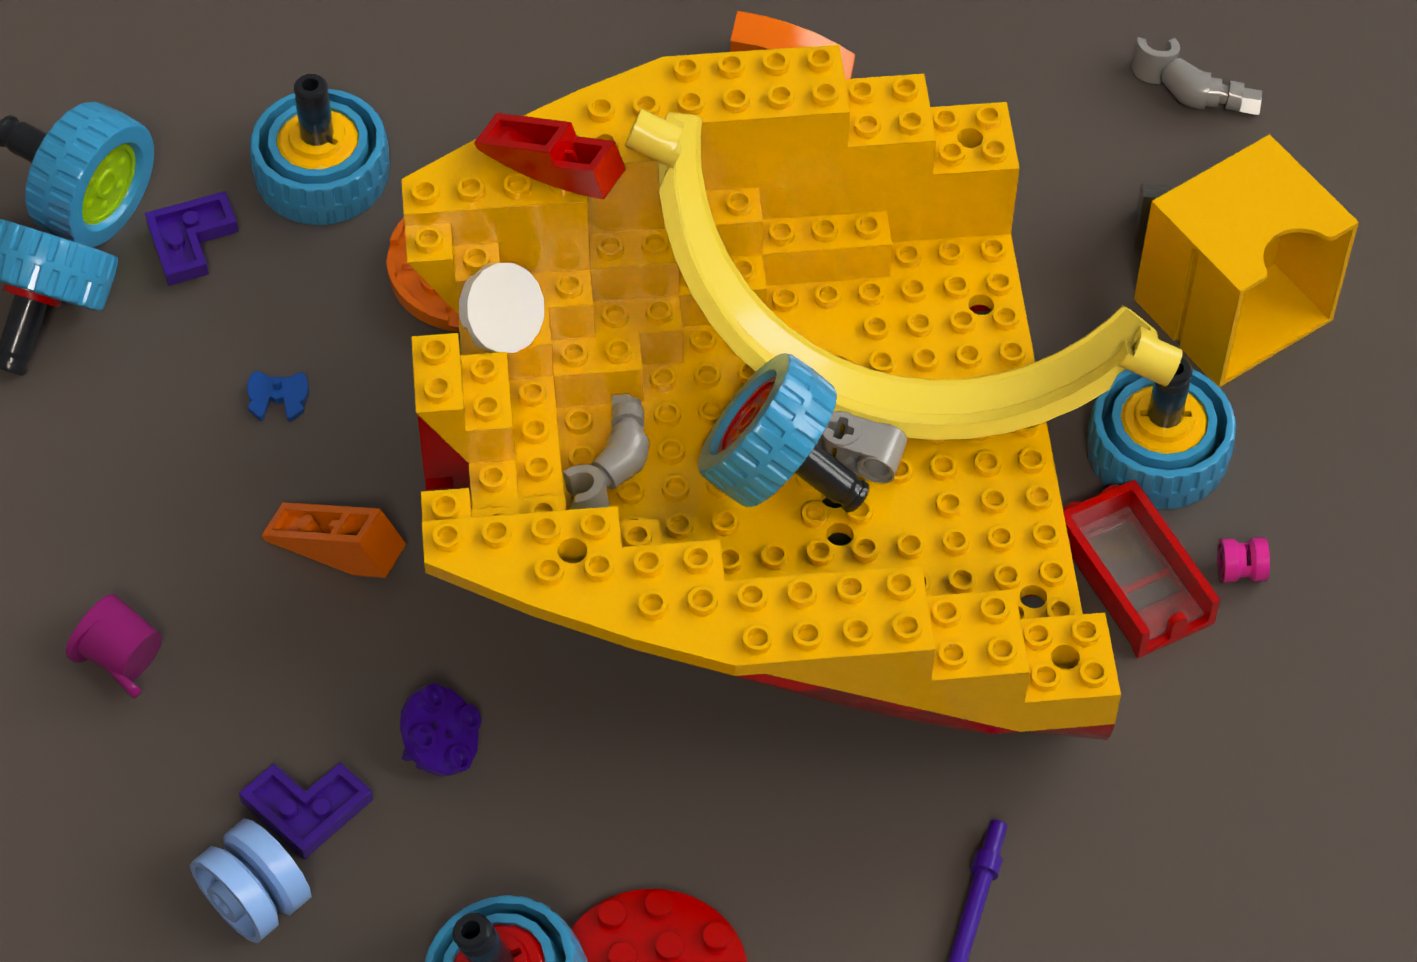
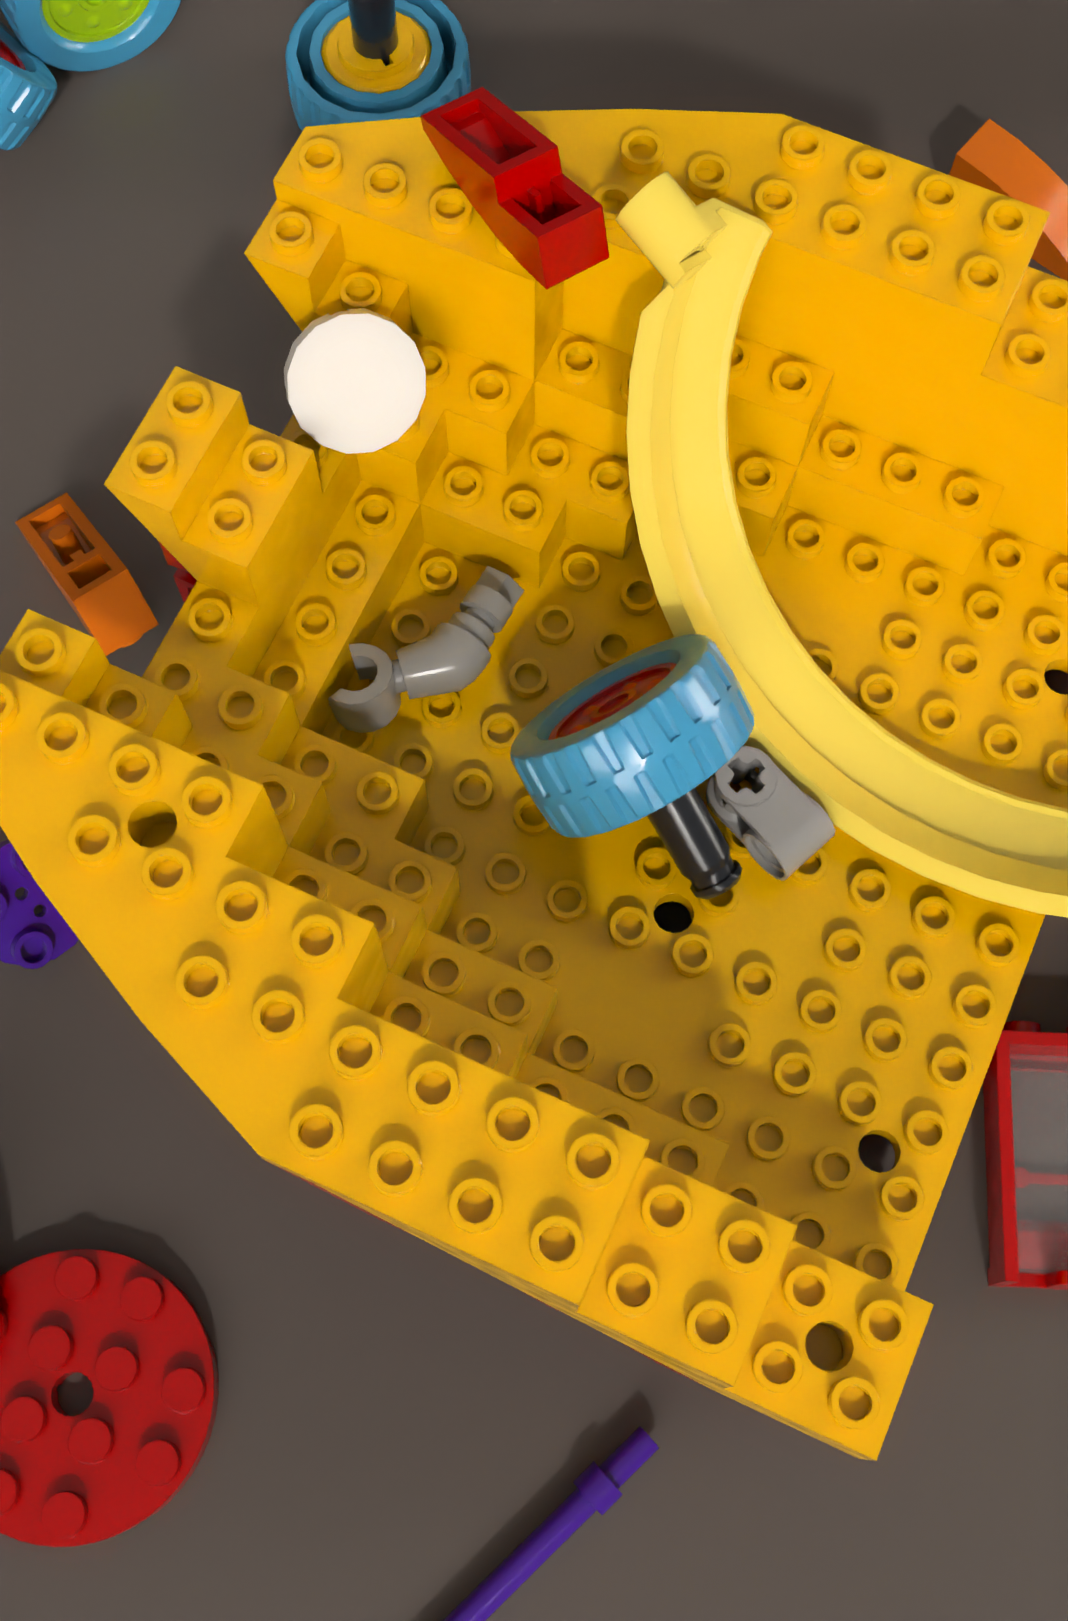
camera: 30 degrees right, 15 degrees up
(182, 228) = (172, 92): dark purple plate -> none
(290, 390) = (155, 347): blue piece -> none

